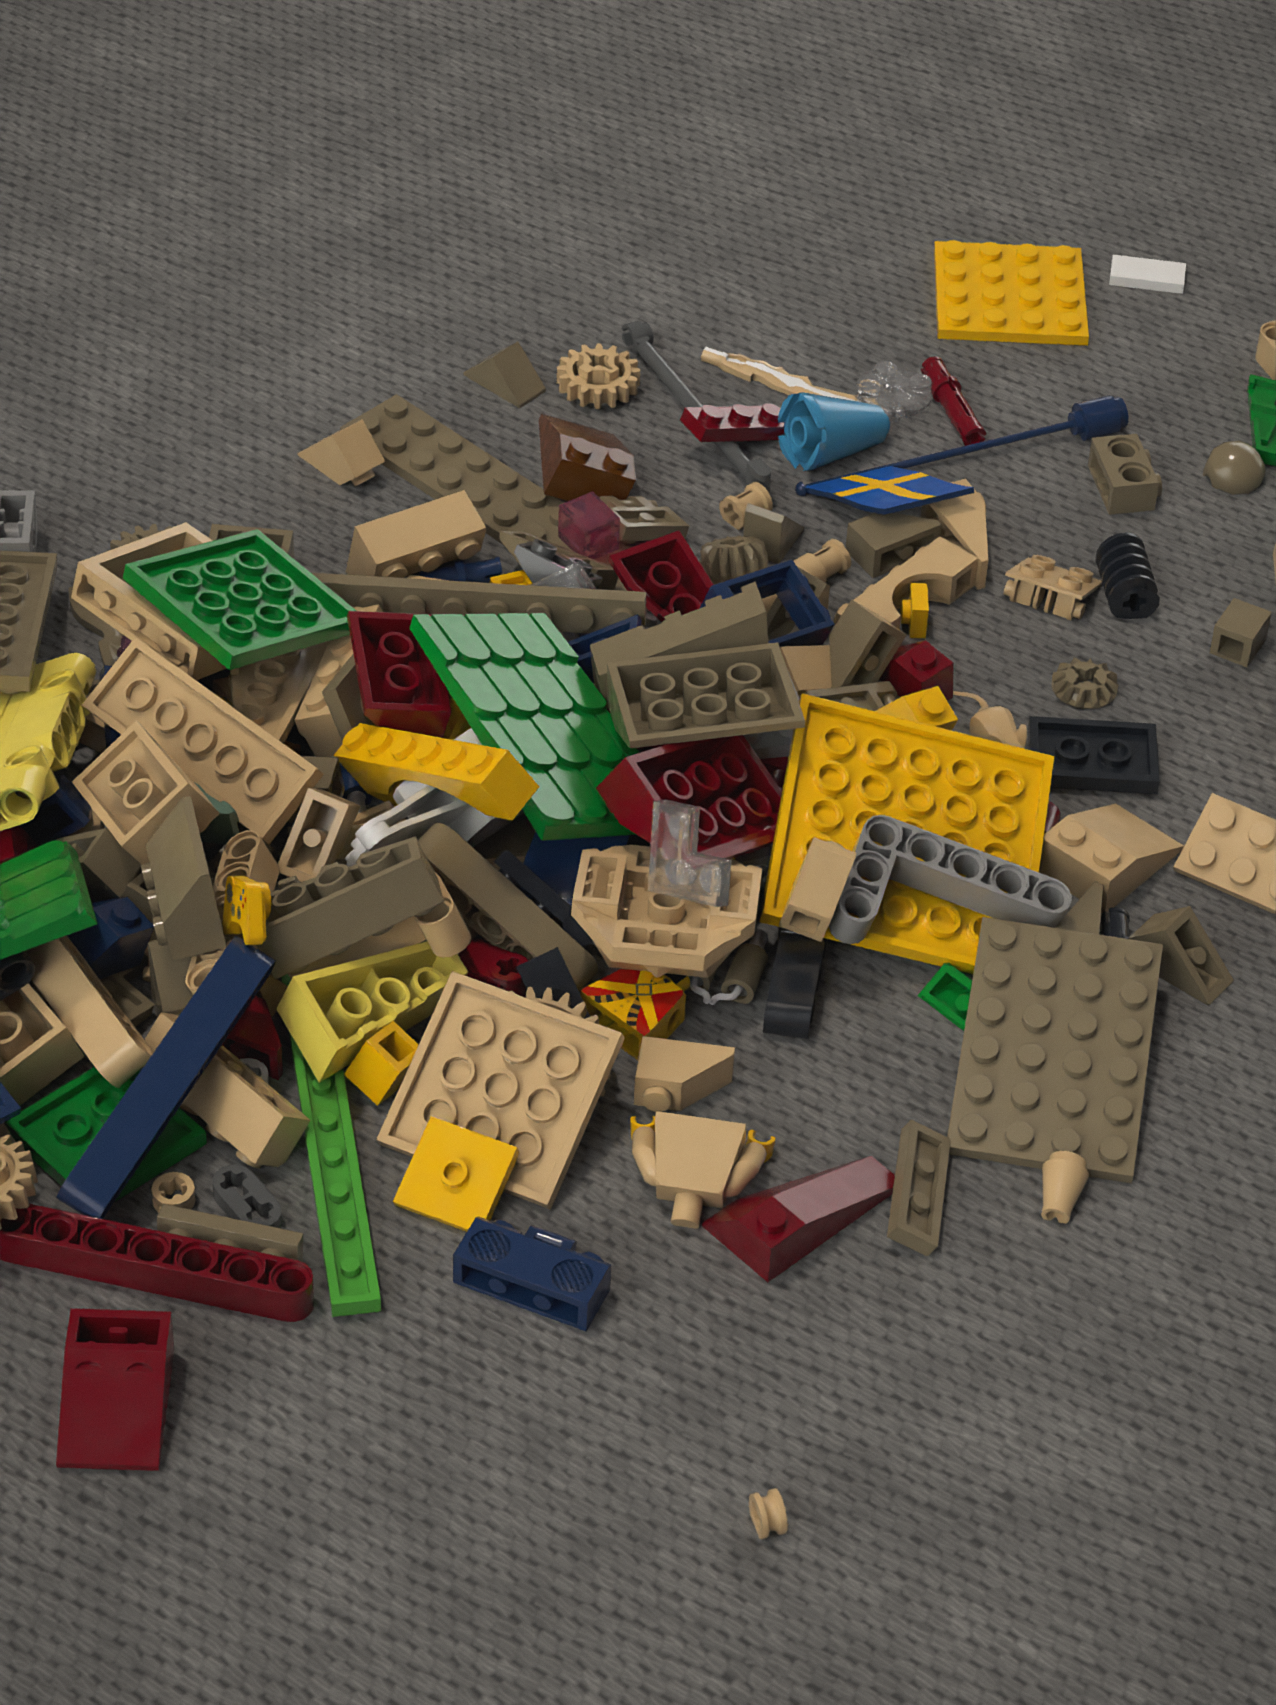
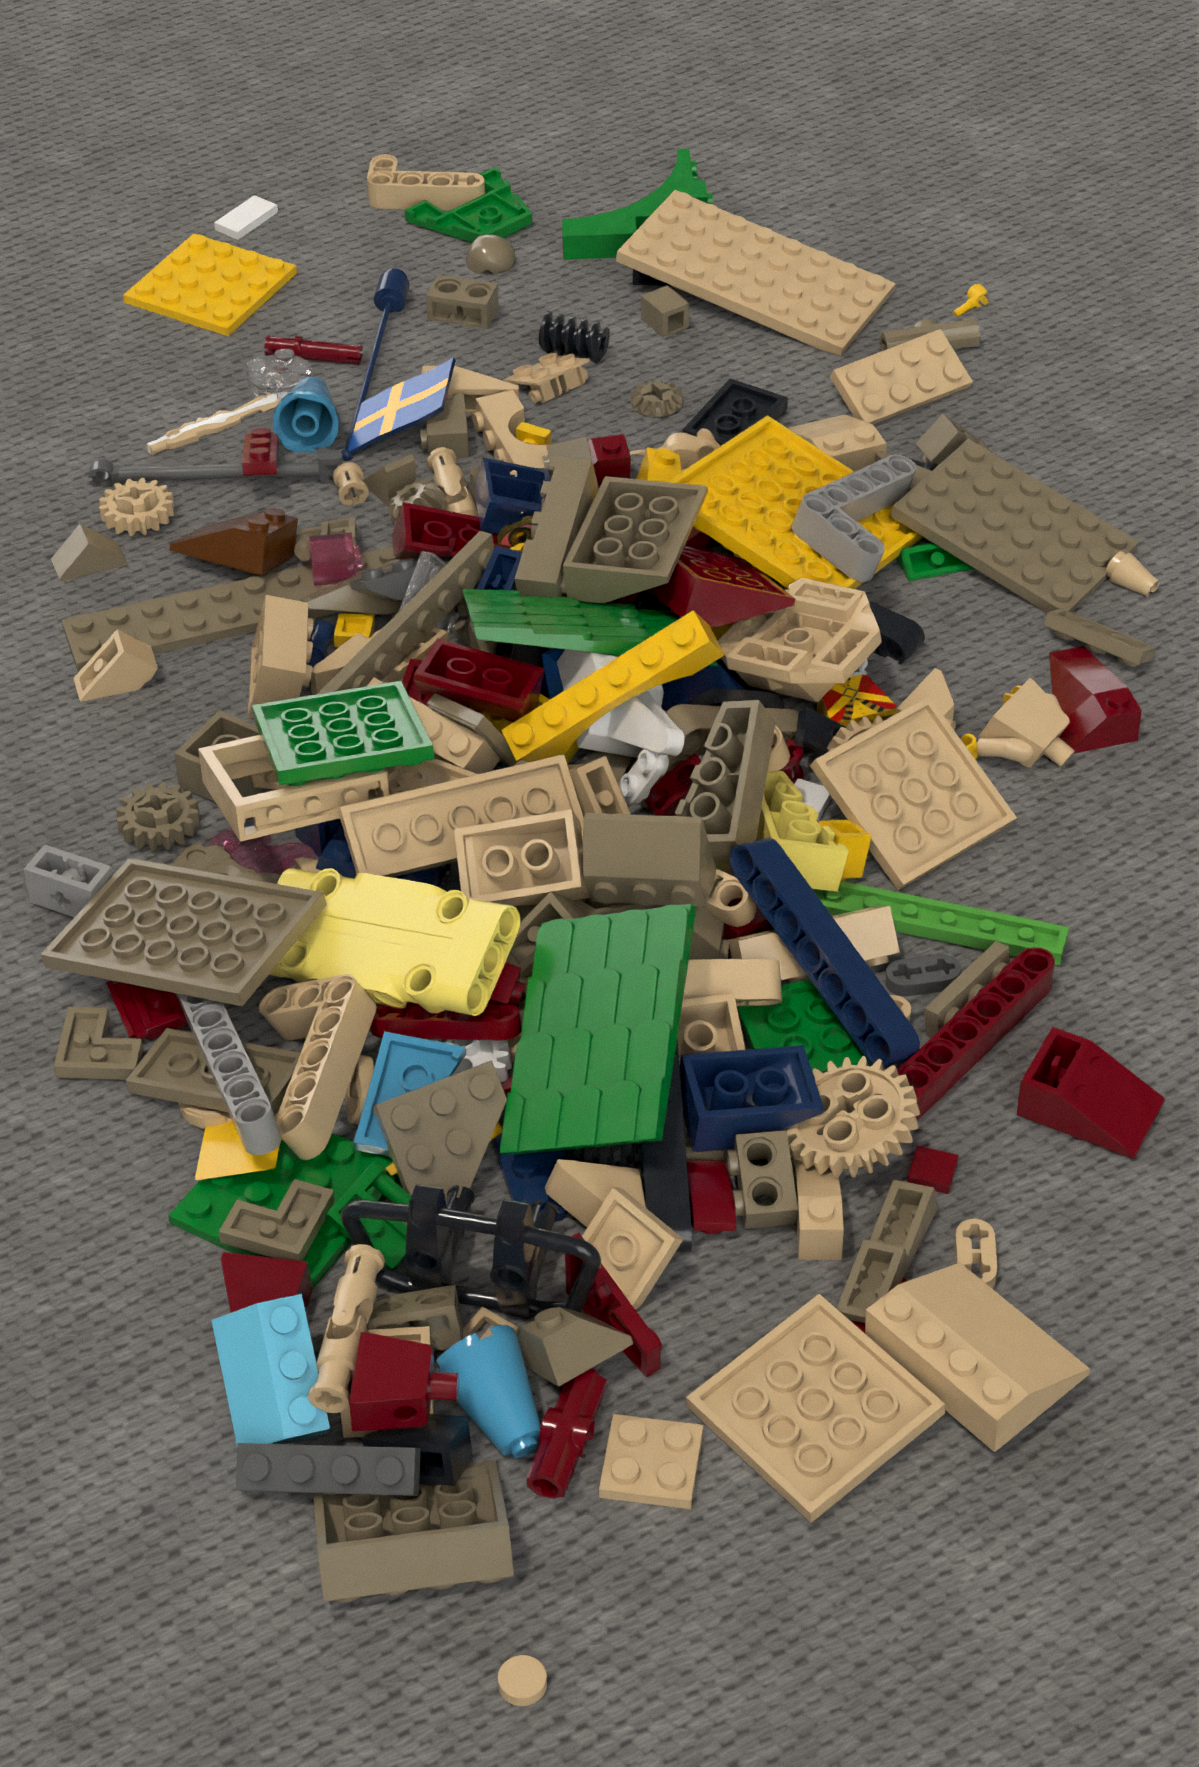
camera: 60 degrees left, 0 degrees up
(246, 909) = (725, 820): yellow piece -> none
(455, 1175) = (969, 851): yellow plate -> none
(532, 1271) = (1078, 845): dark blue piece -> none
(674, 861) = (792, 605): clear plate -> none
(817, 889) = (847, 553): tan slope -> none

